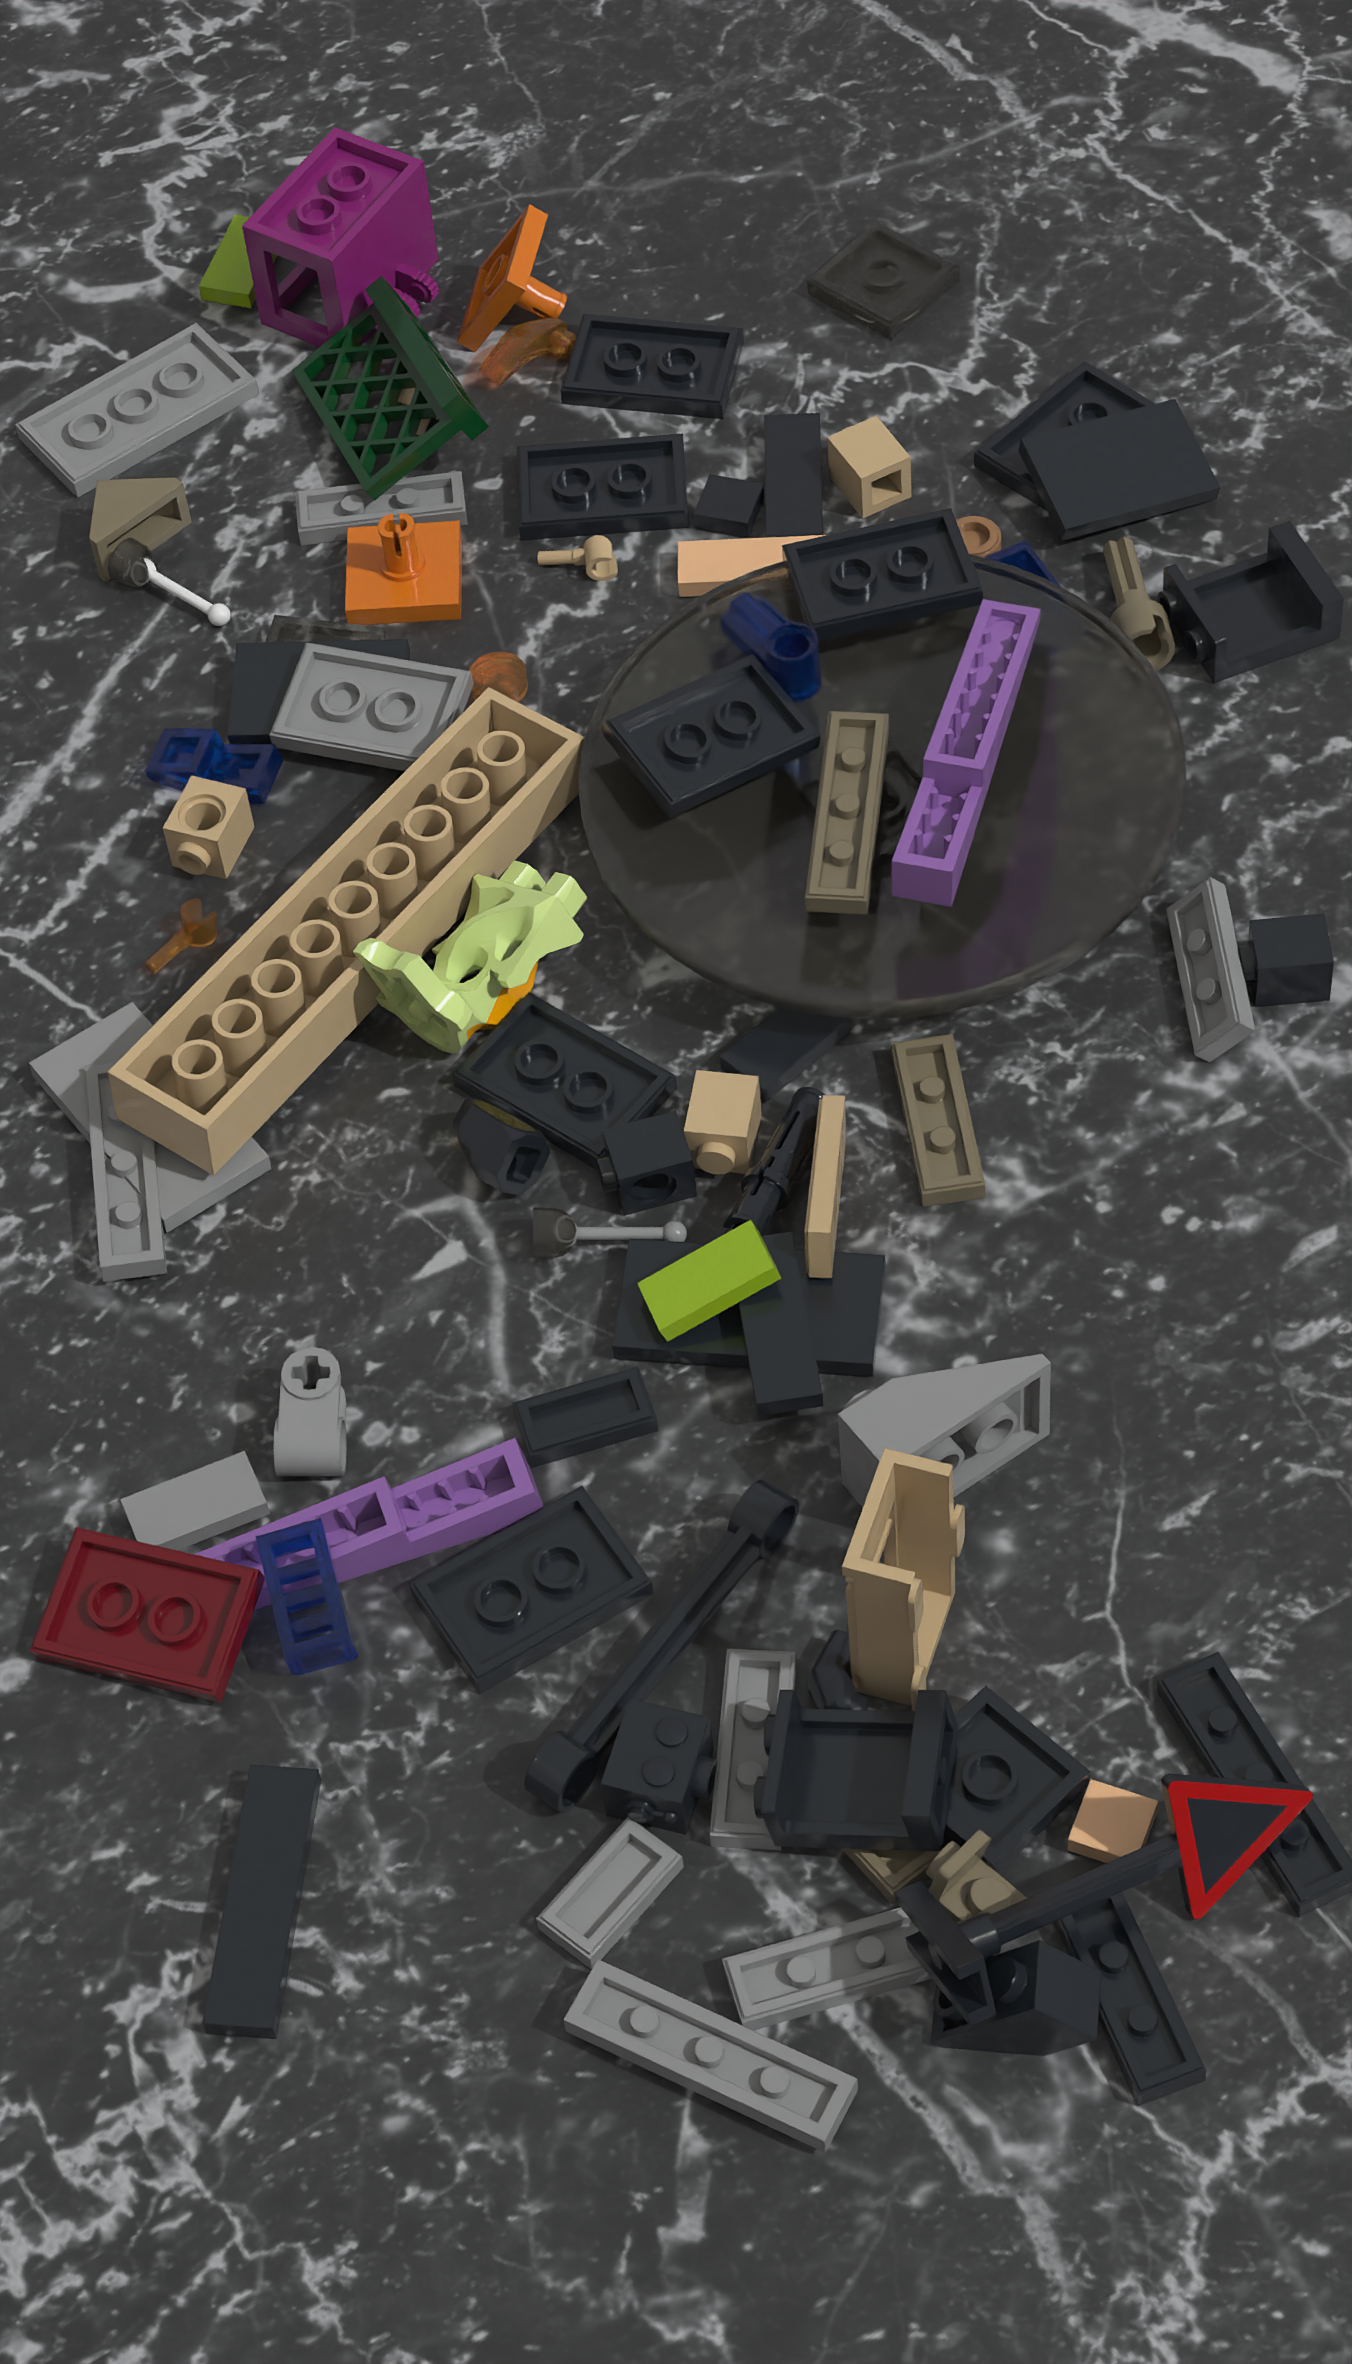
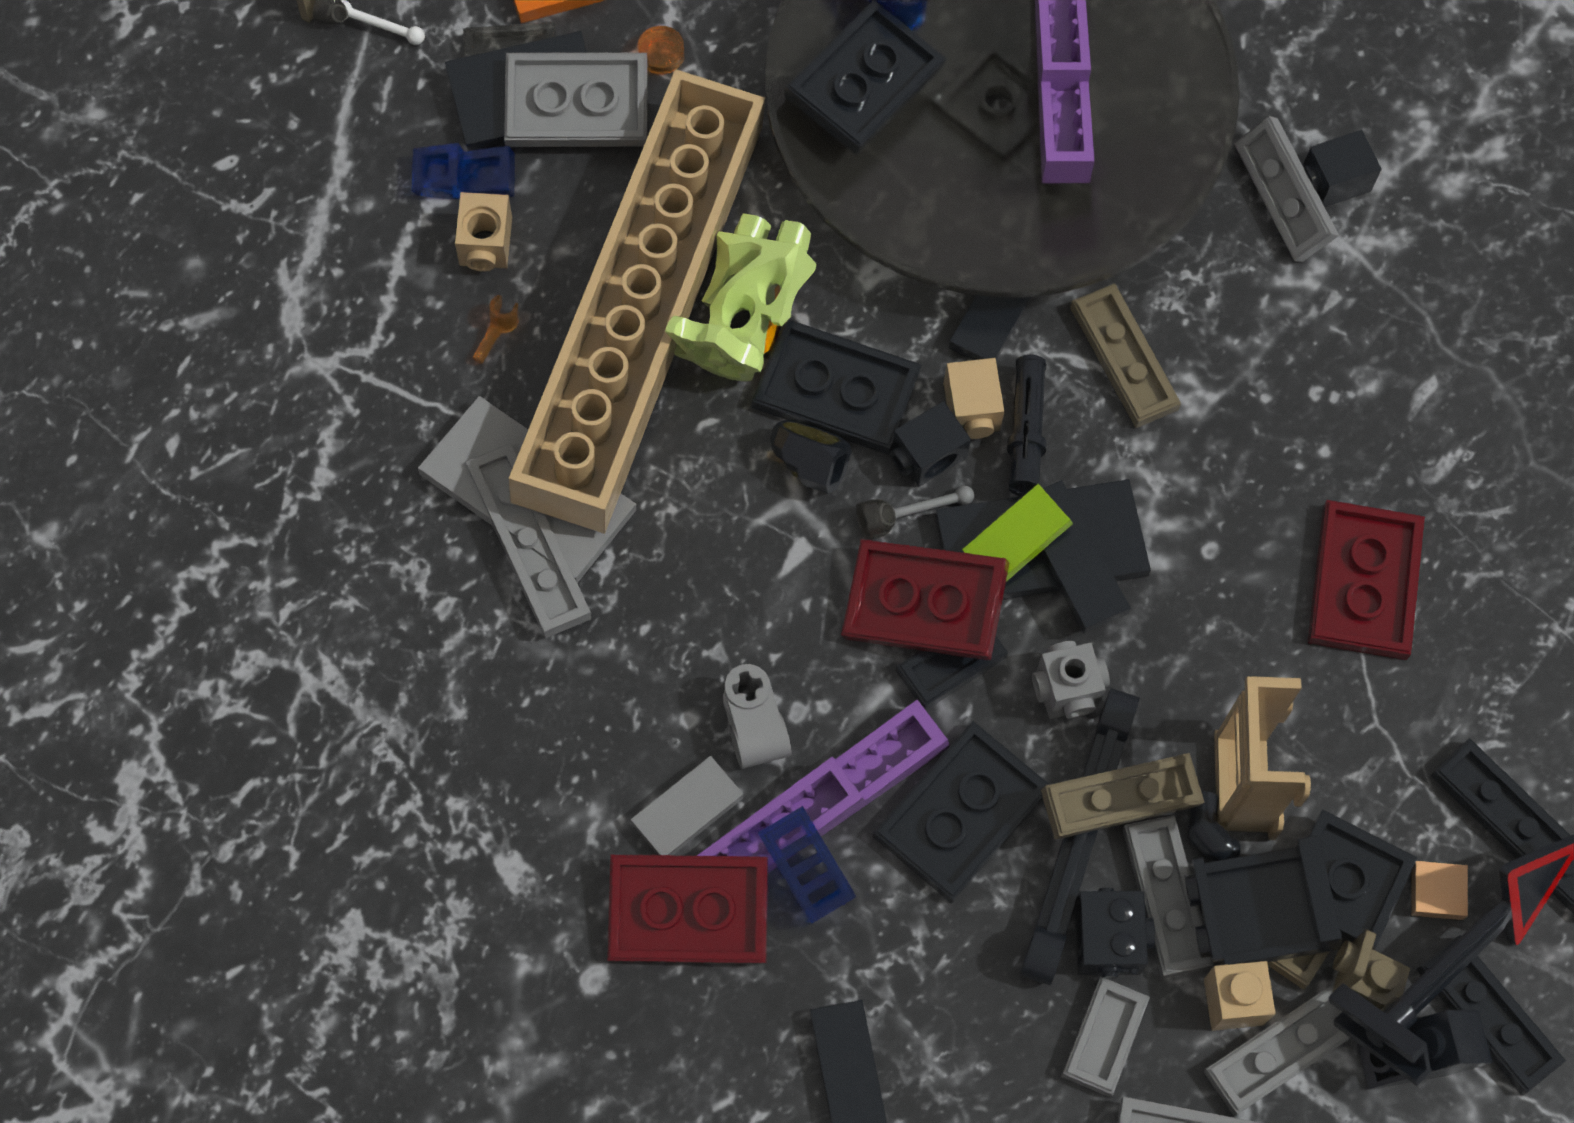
camera: 25 degrees left, 15 degrees up
(572, 1331) = (925, 599): none -> dark red tile
(716, 1460) = (1065, 694): none -> light grey brick
(727, 1603) = (1122, 796): none -> dark tan tile
(792, 1877) = (1239, 995): none -> tan brick
(825, 1186) = (1073, 436): tan tile -> none
(847, 813) = (987, 120): dark tan tile -> none
(954, 1416) = (1212, 636): light grey slope -> none
(1153, 1440) = (1366, 580): none -> dark red tile

